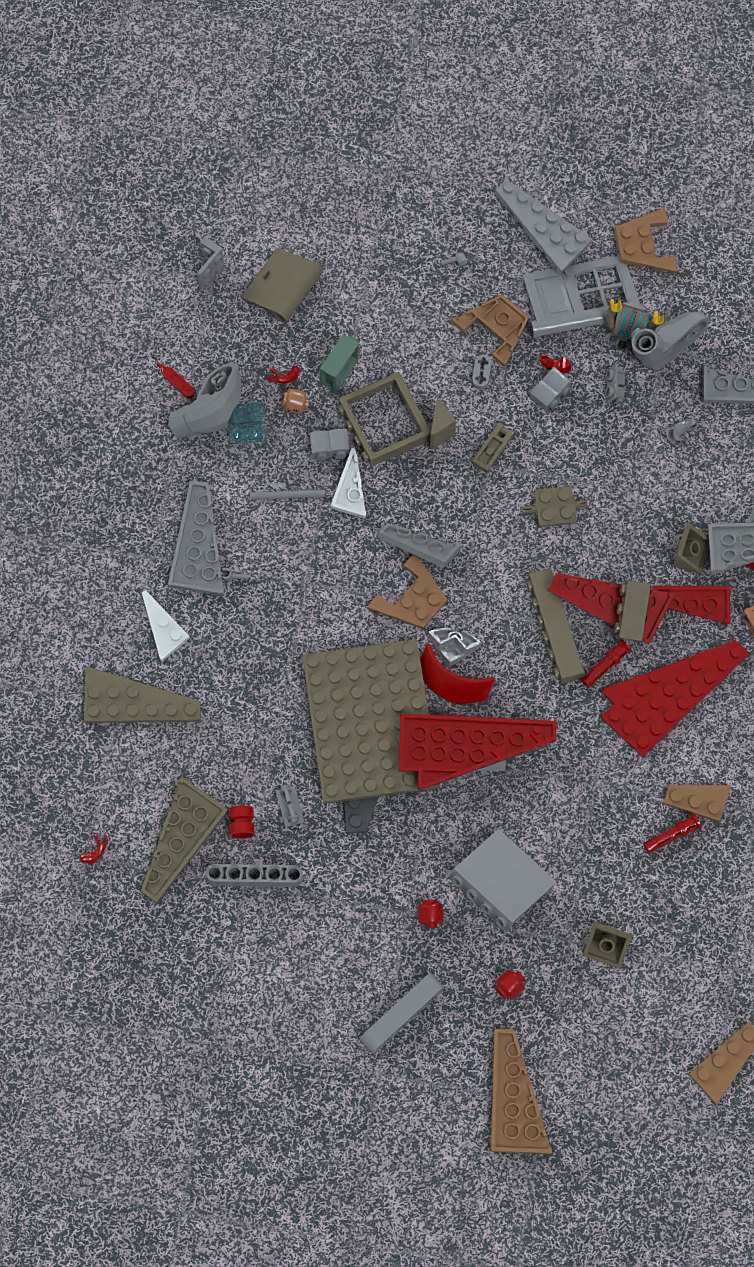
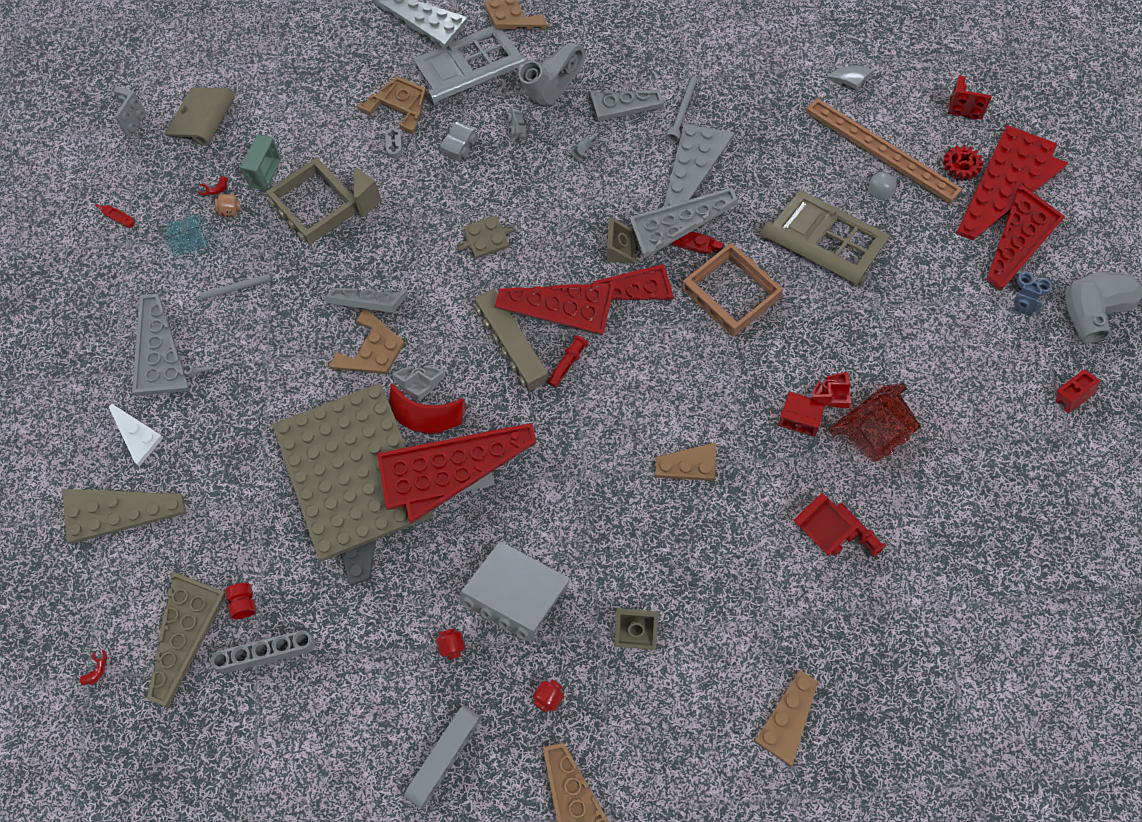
camera: 10 degrees left, 5 degrees down
(213, 405) = (146, 228): light grey piece -> none
(289, 806) = (288, 572): light grey hinge -> none
(329, 444) = (266, 233): light grey brick -> none
(349, 492) = (292, 269): white wing -> none
(459, 258) = (354, 58): light grey hand -> none
(493, 447) = (417, 201): dark tan plate -> none
(562, 364) = (450, 120): red piece -> none
(625, 319) = (506, 67): torso -> none
(632, 611) = (579, 305): dark tan brick -> none
(658, 700) = (623, 384): red wing -> none
(680, 829) = (678, 497): red pin -> none

